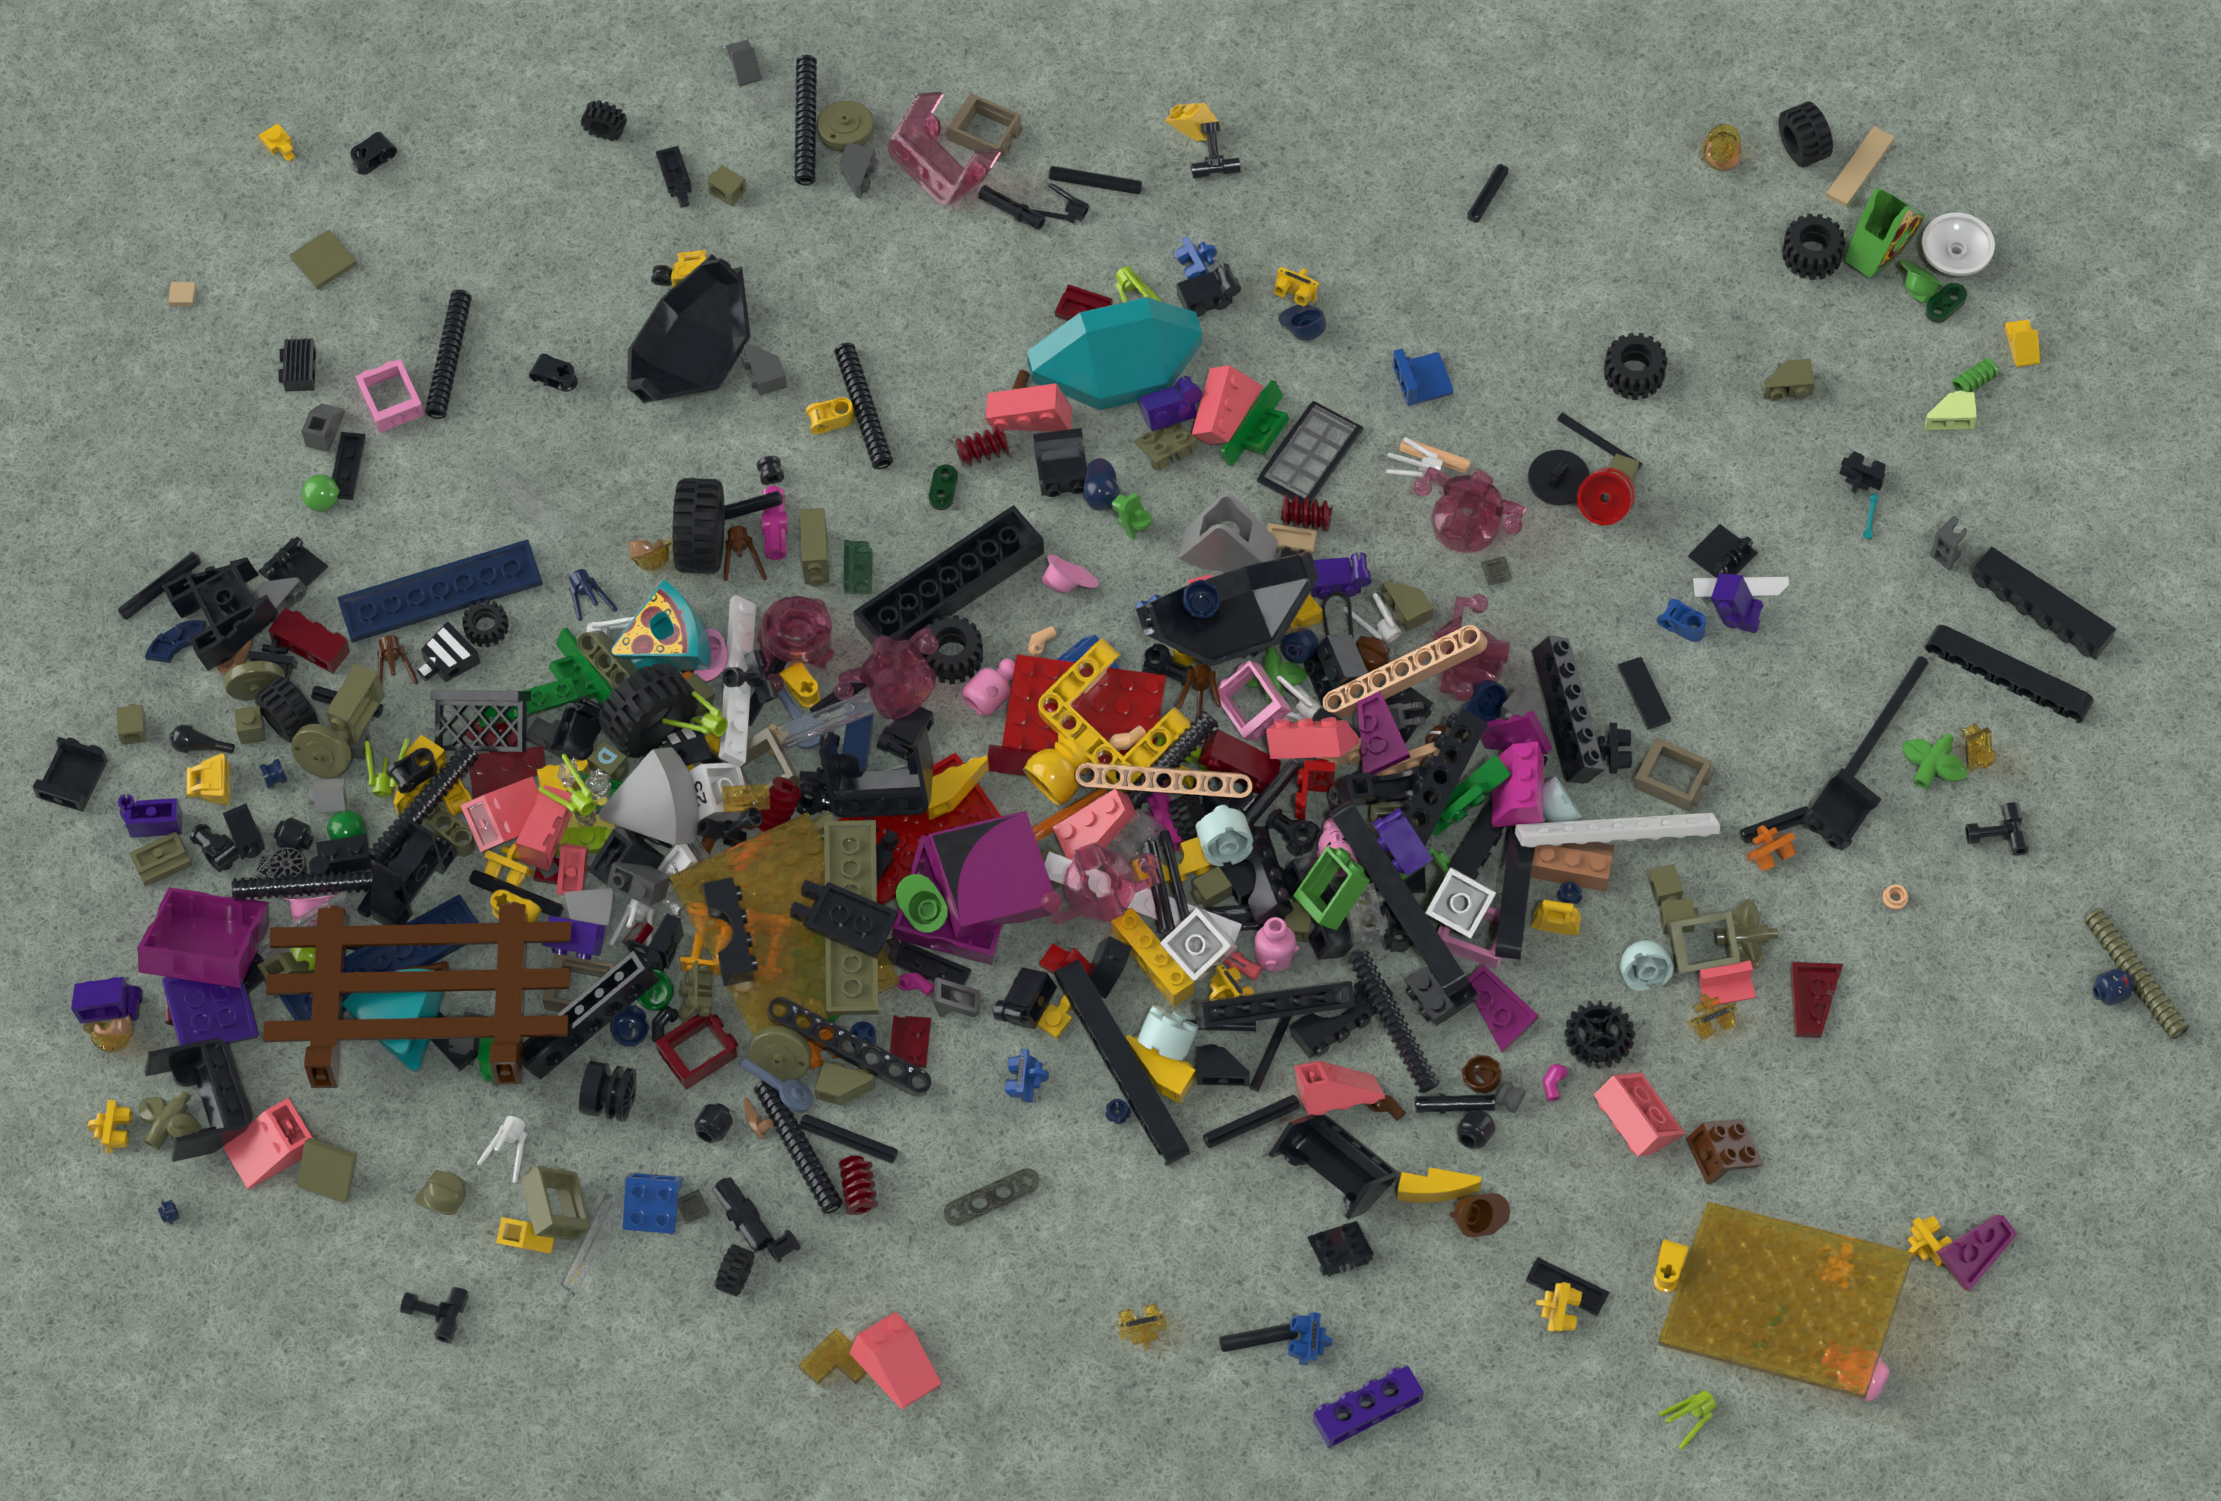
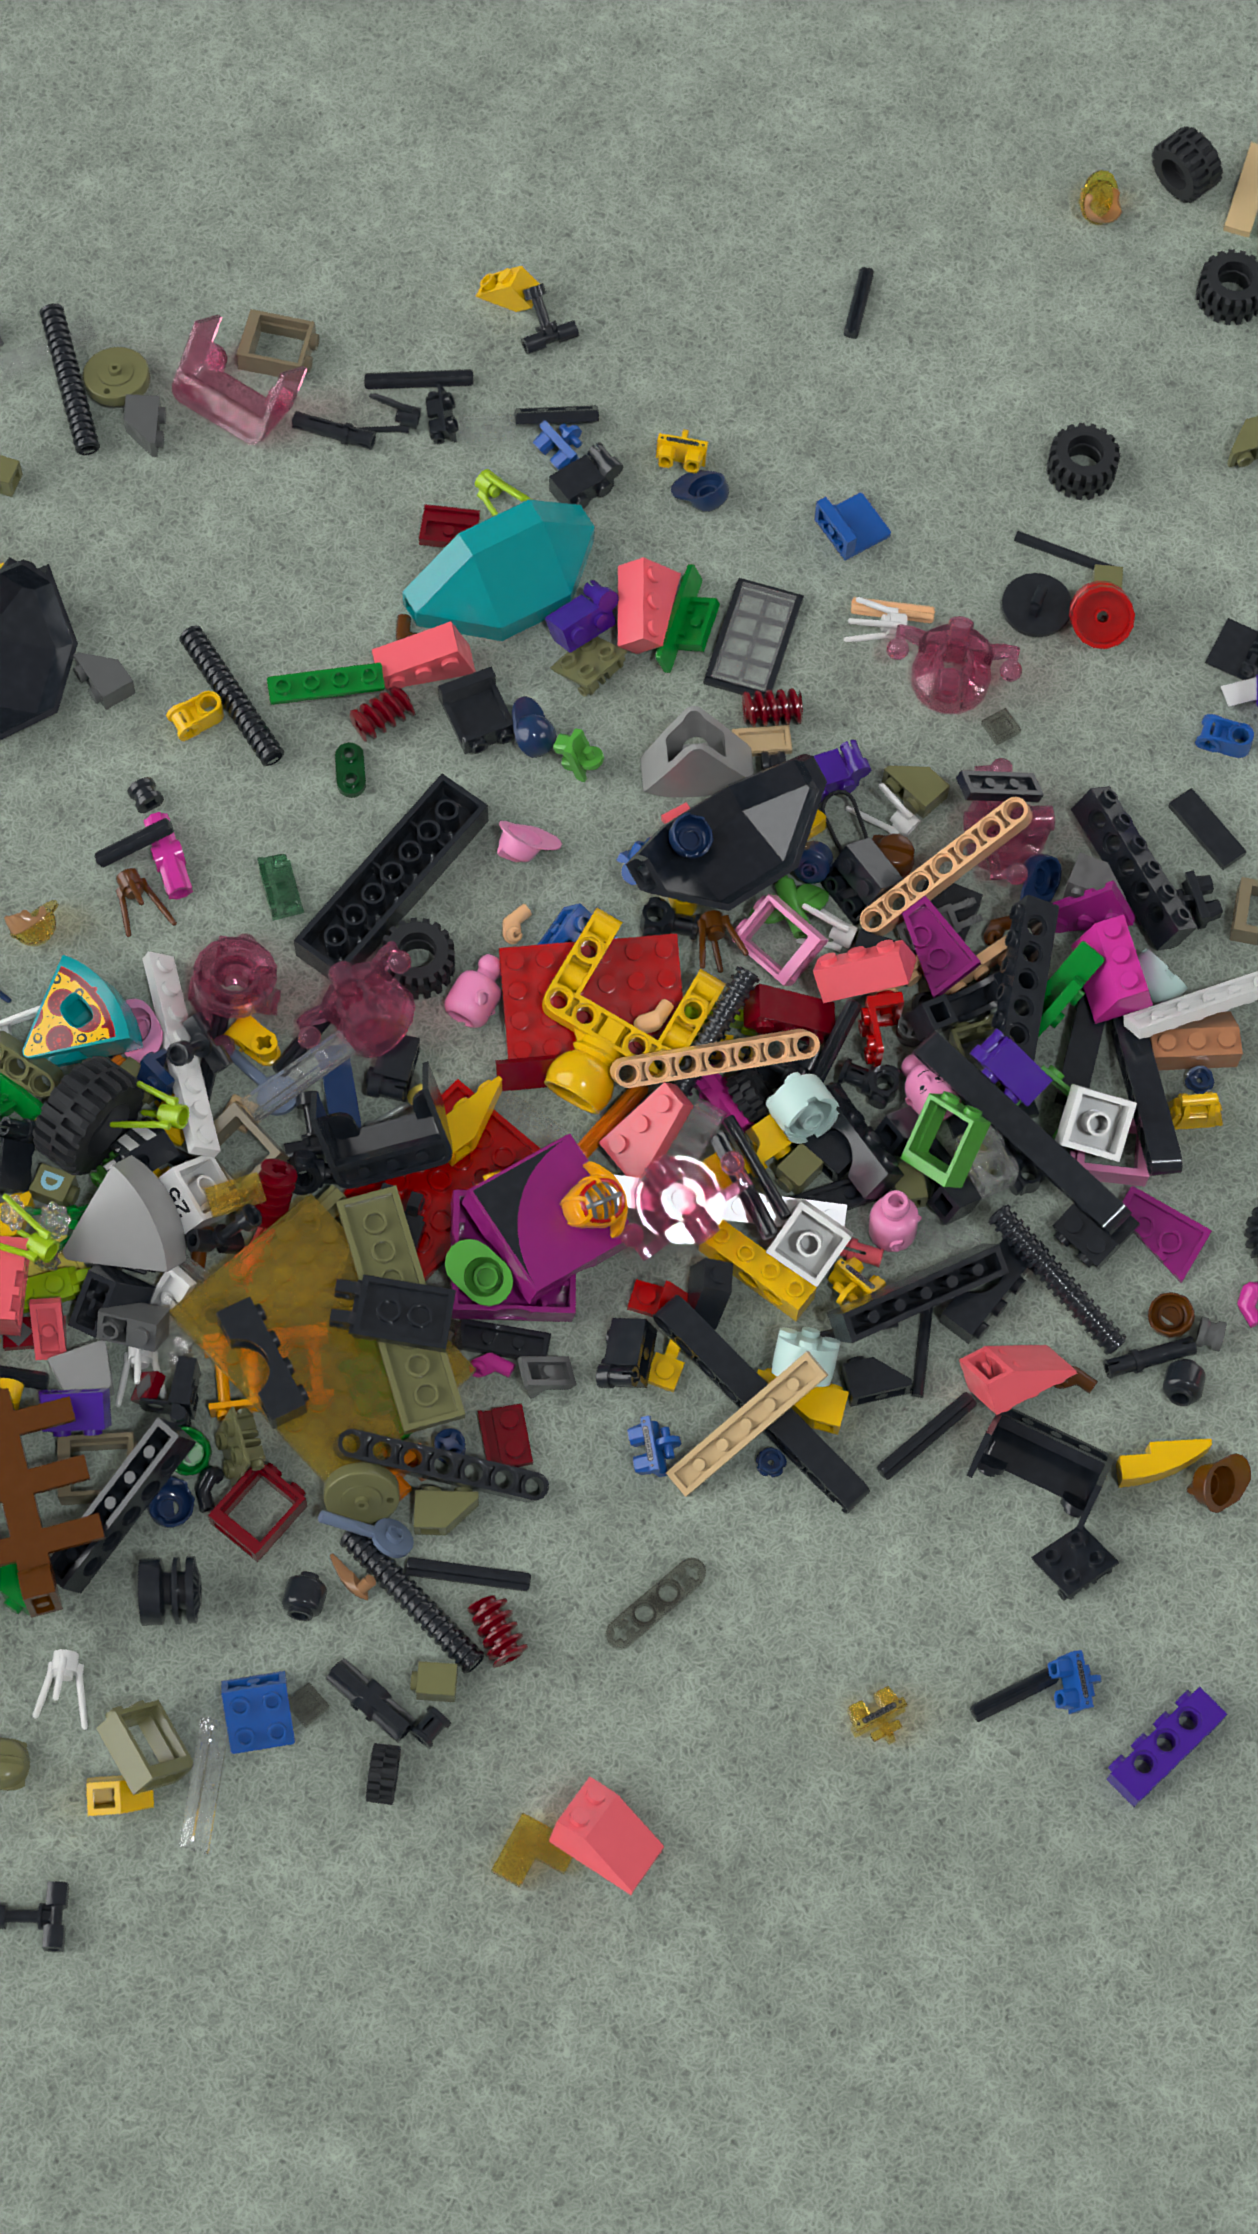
camera: 20 degrees left, 5 degrees up
(698, 525) = (84, 880): black tyre -> none
(710, 689) = (154, 1074): none -> dark blue bracket
(797, 1212) = (435, 1681): none -> olive brick
(814, 546) = (225, 873): olive window -> none
(941, 412) = (325, 683): none -> green bracket
(1024, 867) = (590, 1208): none -> light orange piece
(1103, 1072) = (747, 1423): none -> tan plate
(1106, 205) = (440, 405): none -> black hinge
(1201, 233) = (557, 414): none -> black tile
(1463, 614) = (999, 786): none -> black plate

